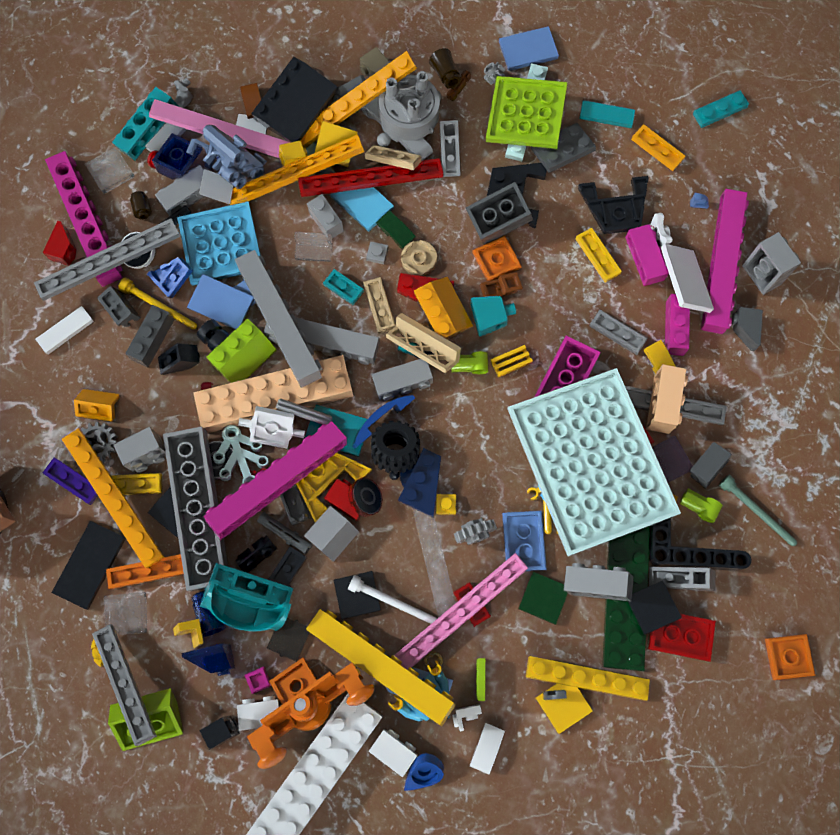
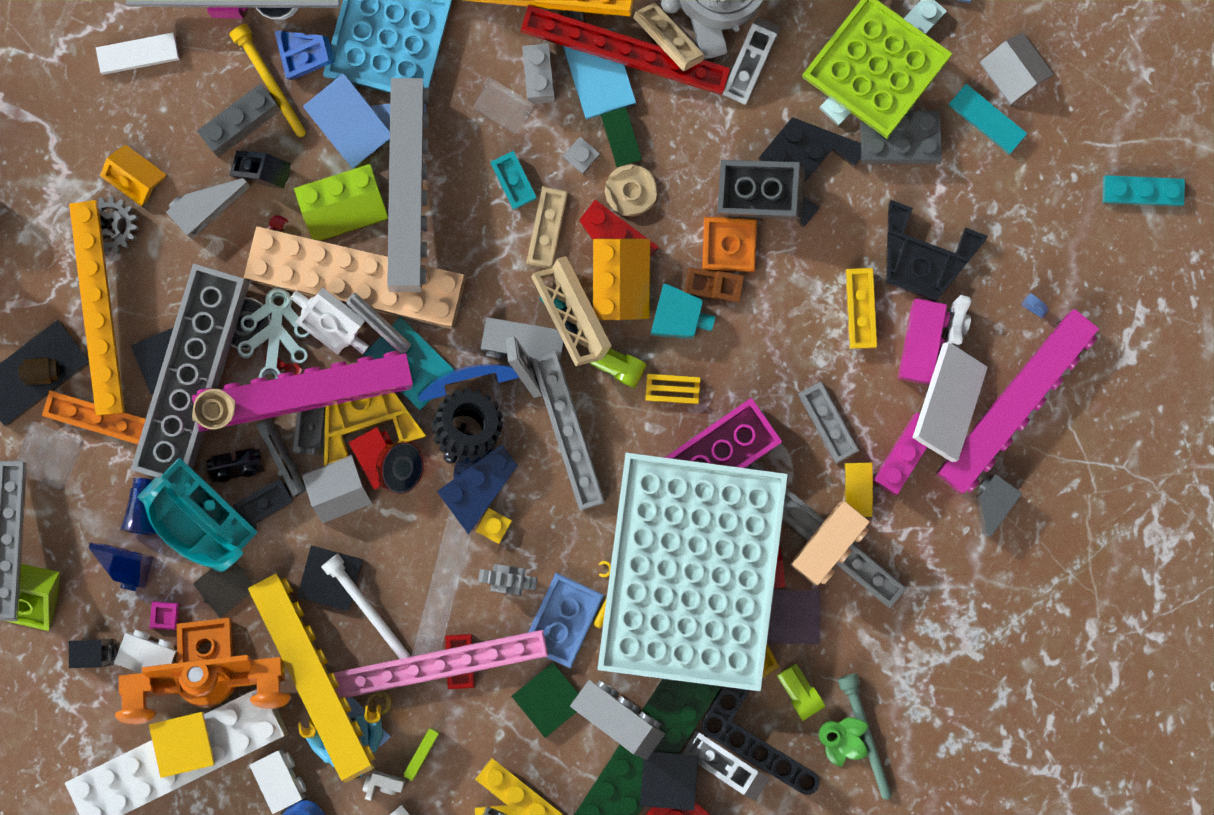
camera: 30 degrees right, 10 degrees up
(70, 480) = (56, 256): dark purple plate -> none
(92, 559) = (39, 371): none -> dark brown brick
(118, 306) = (218, 59): dark grey hinge -> none
(139, 483) = (137, 303): yellow tile -> none
(141, 450) = (158, 267): light grey brick -> none
(152, 400) = (201, 207): none -> light grey slope
(190, 627) = (119, 520): yellow panel -> none
(212, 334) = (315, 152): black wheel -> none
(222, 515) = (213, 409): none -> tan hat
(315, 761) = (182, 744): none -> yellow tile
(336, 341) = (466, 248): light grey brick -> none
(412, 389) = (522, 366): none -> light grey tile
(461, 417) = (568, 430): none -> light grey tile
(605, 79) = (1016, 68): none -> light grey slope
(658, 147) = (1025, 202): light orange plate -> none
(710, 465) = (840, 649): dark grey hinge -> none
(749, 520) = (846, 743): none -> bright green plate
(771, 263) = (1066, 441): light grey brick -> none

